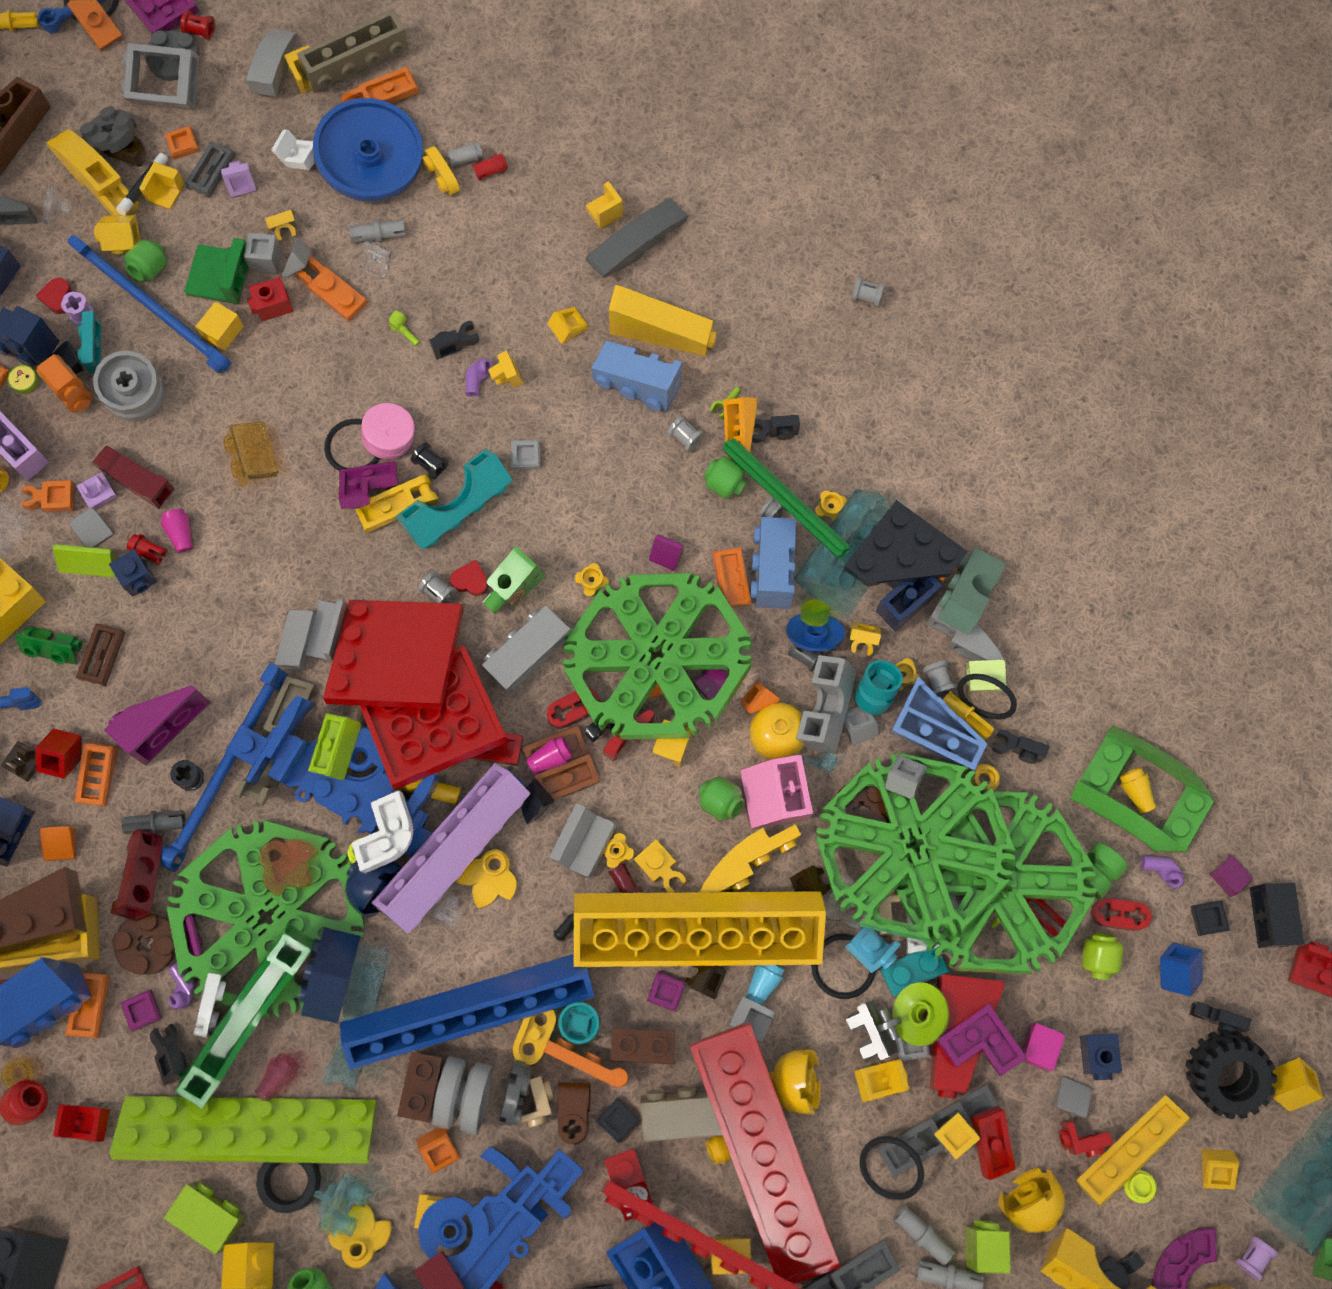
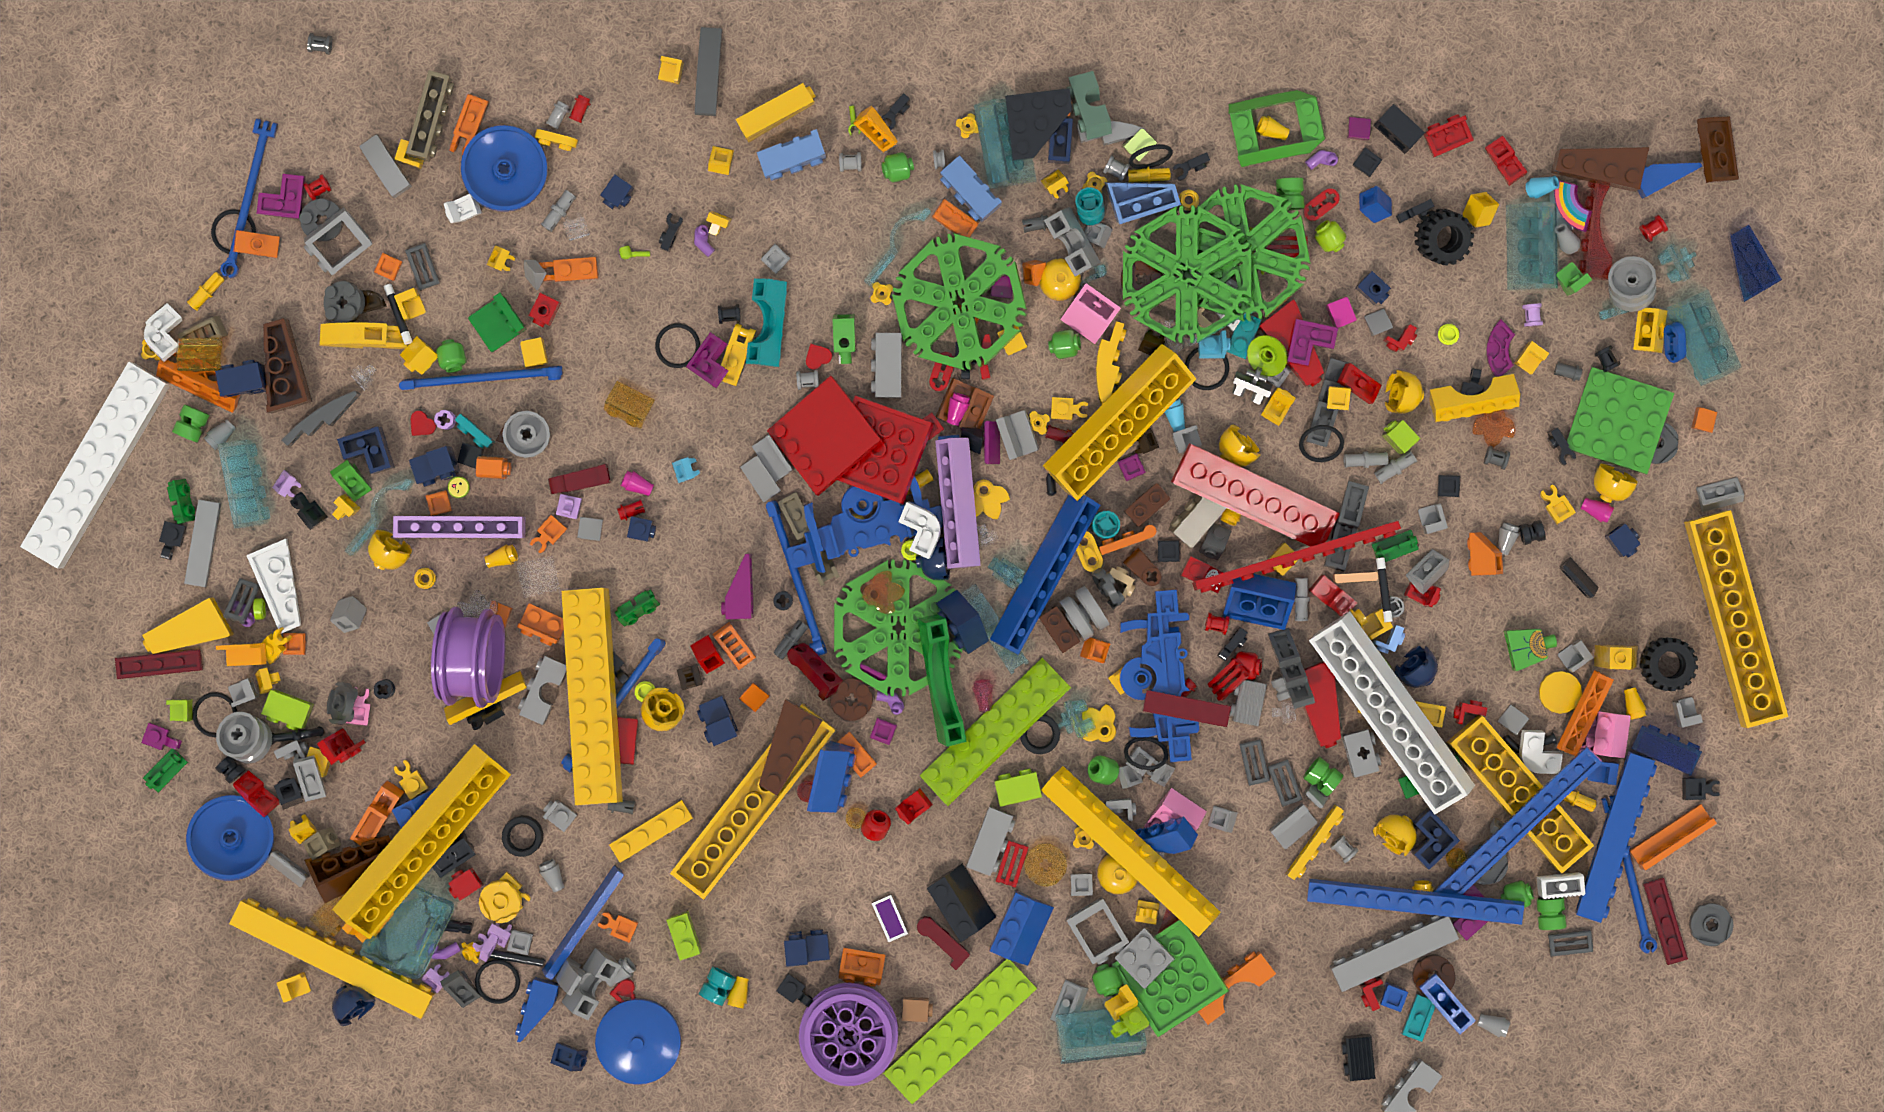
camera: 45 degrees left, 15 degrees up
(84, 560) = (607, 548): lime slope -> none
(111, 657) = (677, 602): reddish brown tile -> none
(116, 1247) = (990, 841): none -> light grey brick
(169, 1058) = (922, 737): black plate -> none
(207, 1018) = (919, 697): white plate -> none
(236, 554) = (684, 470): none -> medium azure tile
(238, 179) = (447, 257): lavender tile -> none
(263, 253) = (512, 287): light grey panel -> none
(335, 746) = (846, 512): lime slope -> none
(387, 431) = (690, 320): bright pink head -> none
(429, 971) = (1006, 572): none -> clear light blue hips
(444, 262) = (617, 193): none -> dark blue brick
(548, 825) = (991, 443): none -> magenta slope
(591, 1254) = (1217, 623): none -> red bush
(638, 550) = (892, 253): none -> clear light blue piece
(666, 552) = (907, 240): magenta slope -> none
(676, 1160) = (1215, 541): none -> dark grey bracket
(786, 498) = (943, 150): green axle -> none
(815, 612) = (1017, 196): clear neon green tile -> none
(815, 637) = (1026, 200): blue dish -> none
(905, 777) = (1149, 242): light grey slope -> none
(1132, 1151) = (1429, 320): yellow plate -> none
(1219, 1169) = (1479, 287): yellow slope -> none

